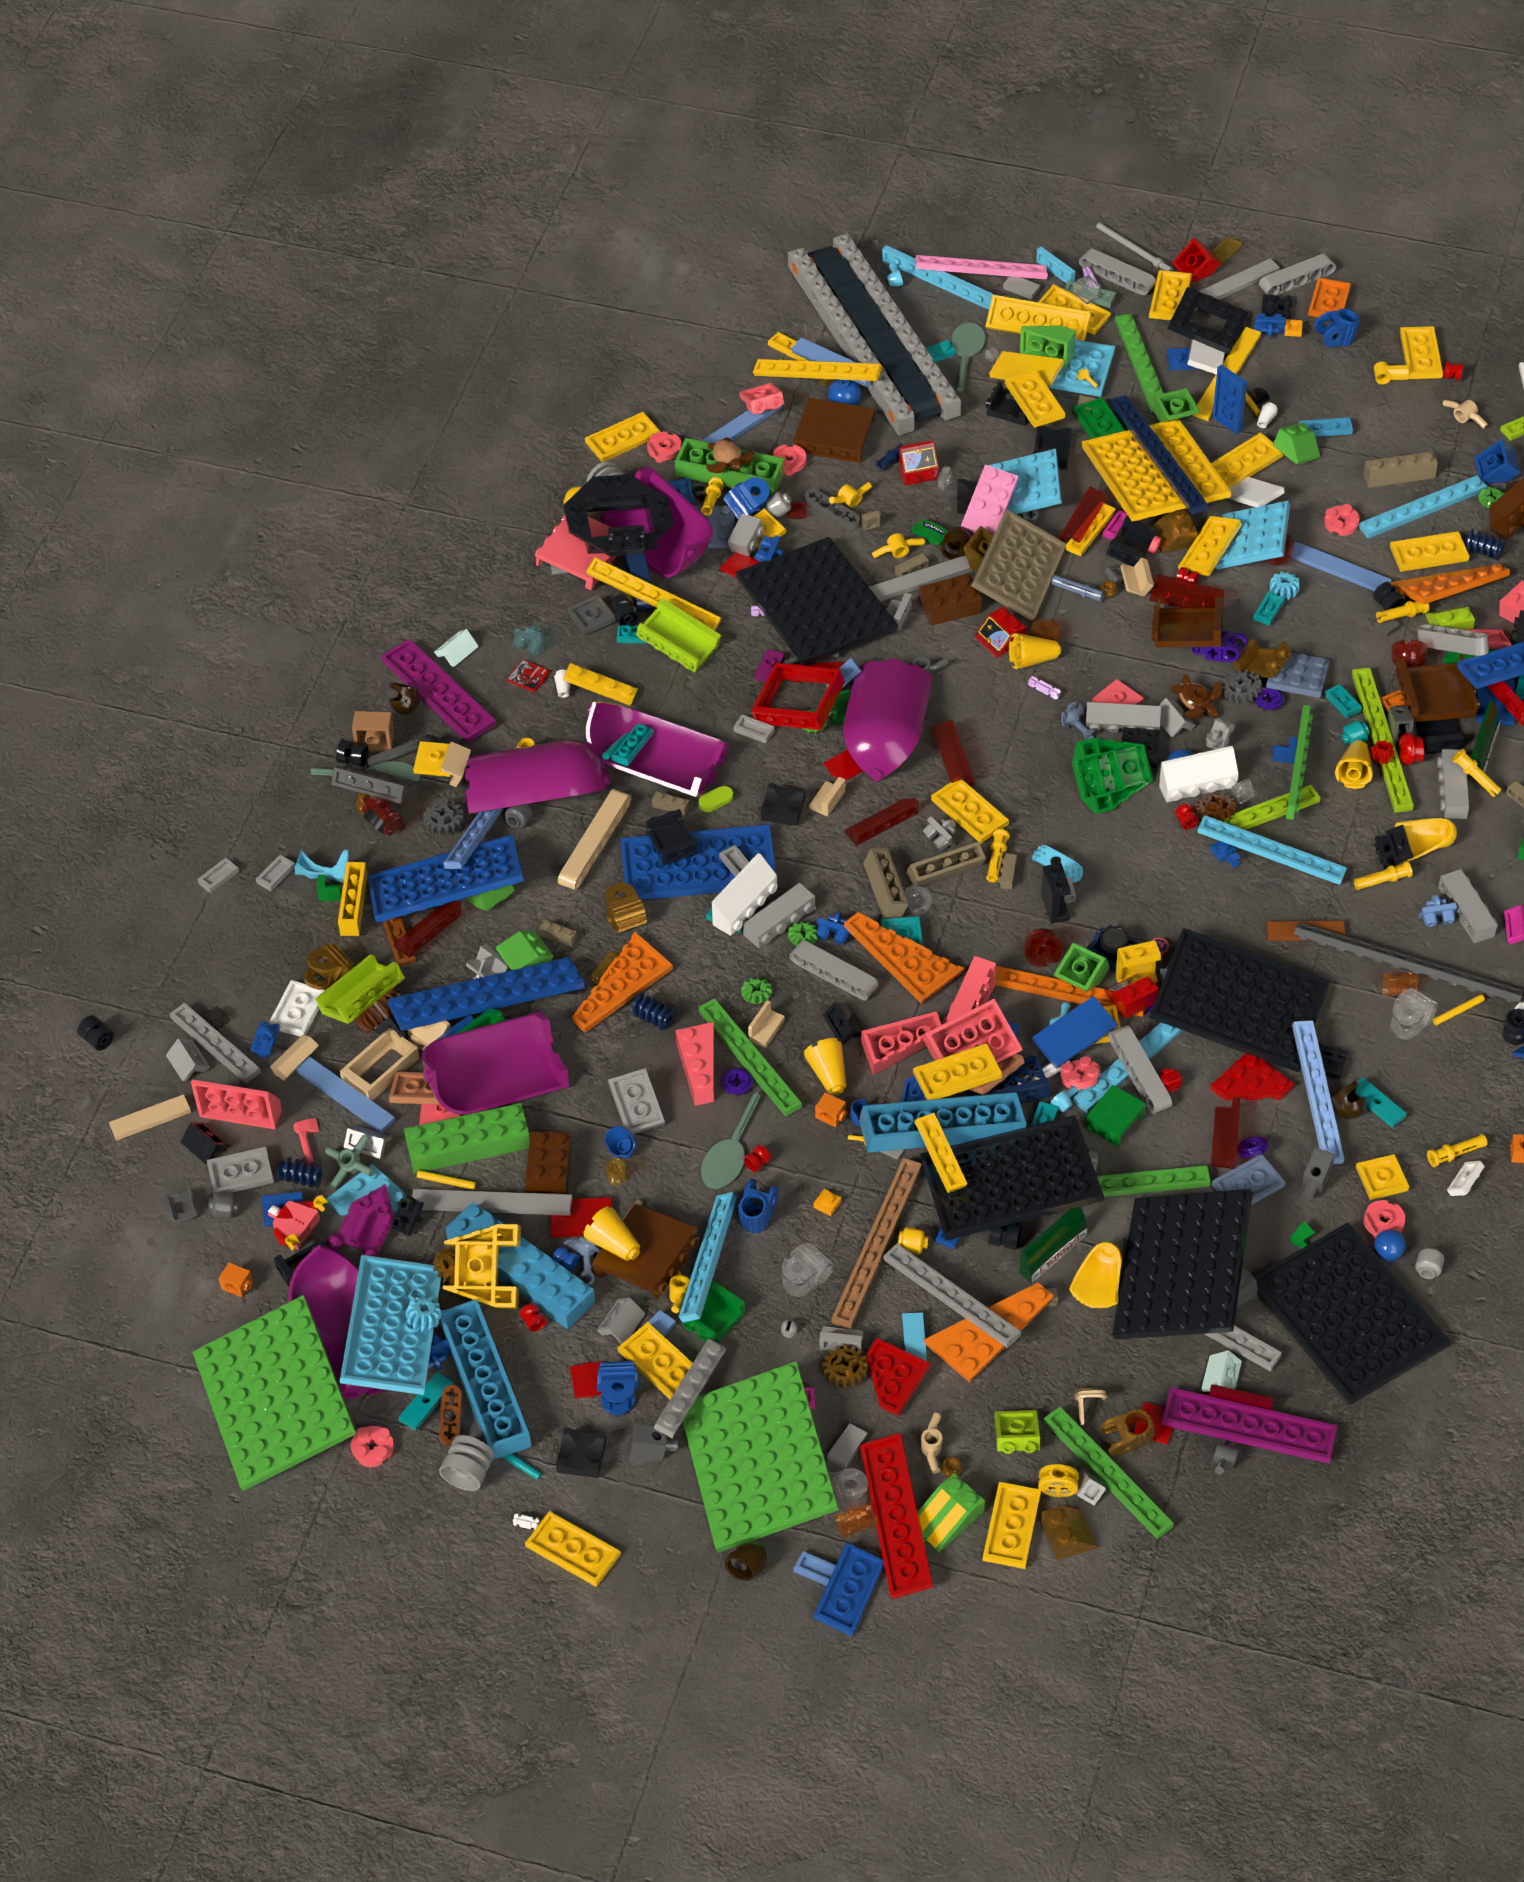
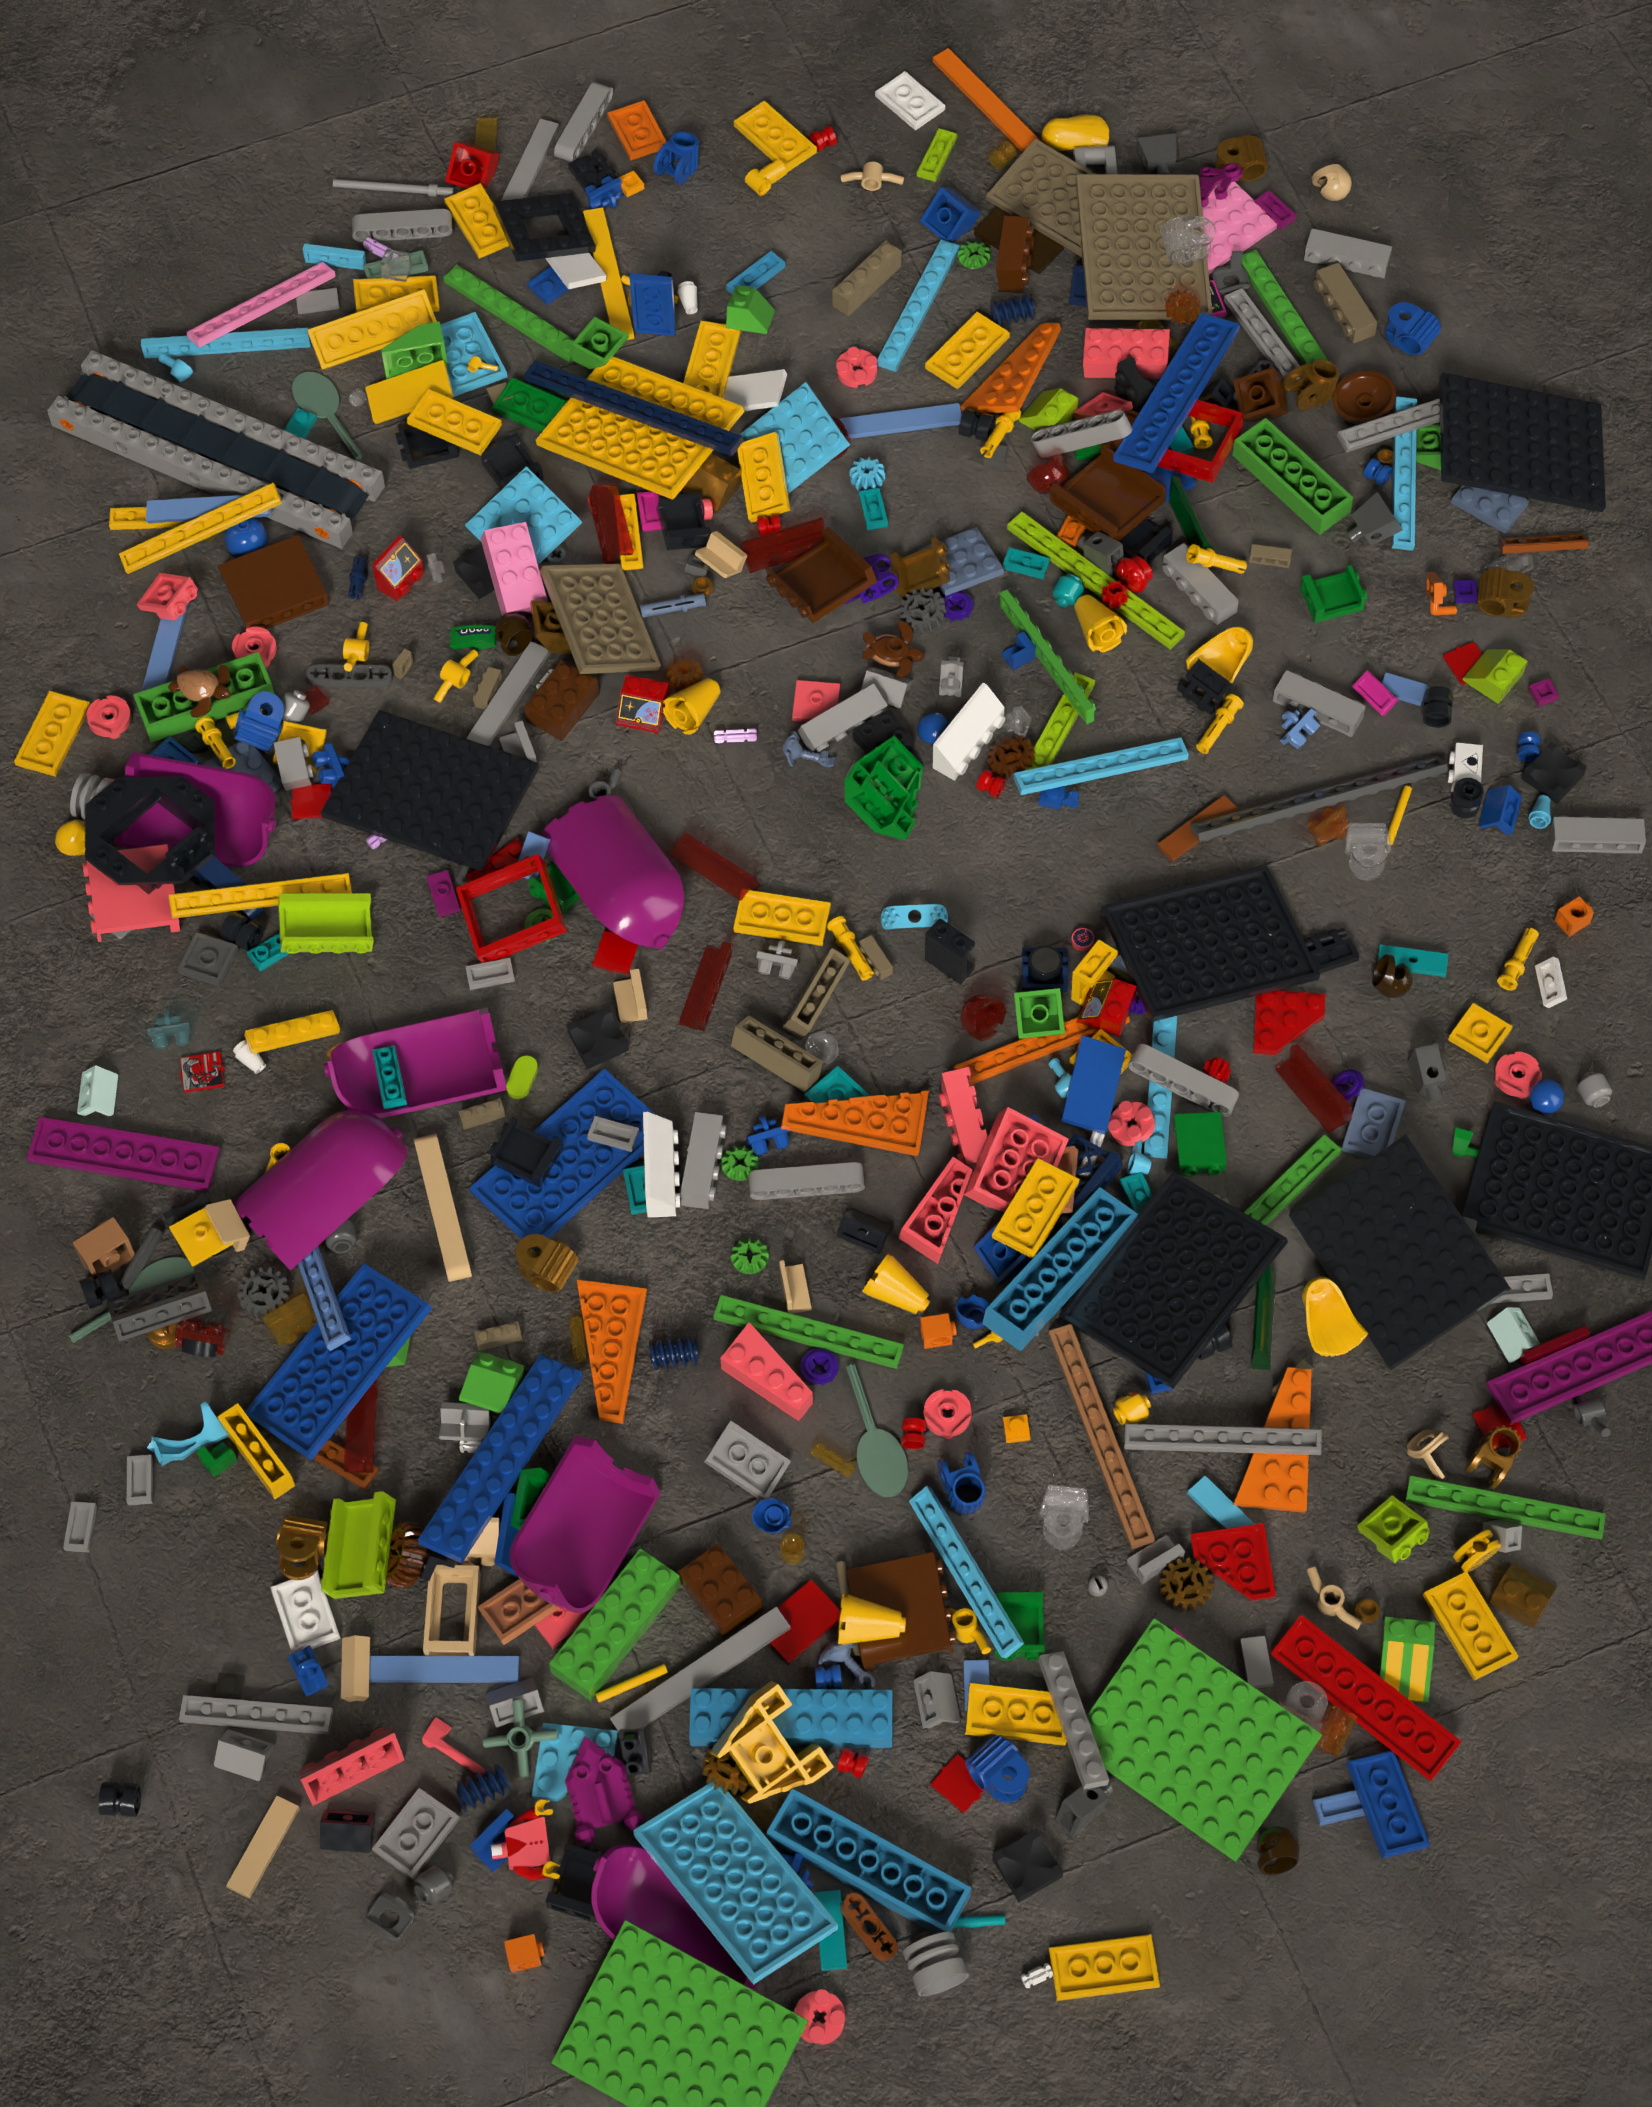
camera: 40 degrees left, 10 degrees up
(406, 700) = (101, 1188): dark brown helmet -> none
(423, 1314) = (760, 1846): medium azure gear -> none
(441, 840) = (290, 1320): none -> clear yellow brick
(606, 755) = (375, 1090): teal piece -> none
(693, 1140) = (833, 1460): none -> clear yellow axle
(791, 1172) = (947, 1400): none -> coral plate
(941, 1152) = (1096, 1303): yellow plate -> none
(1317, 1089) = (1356, 987): light blue plate -> none

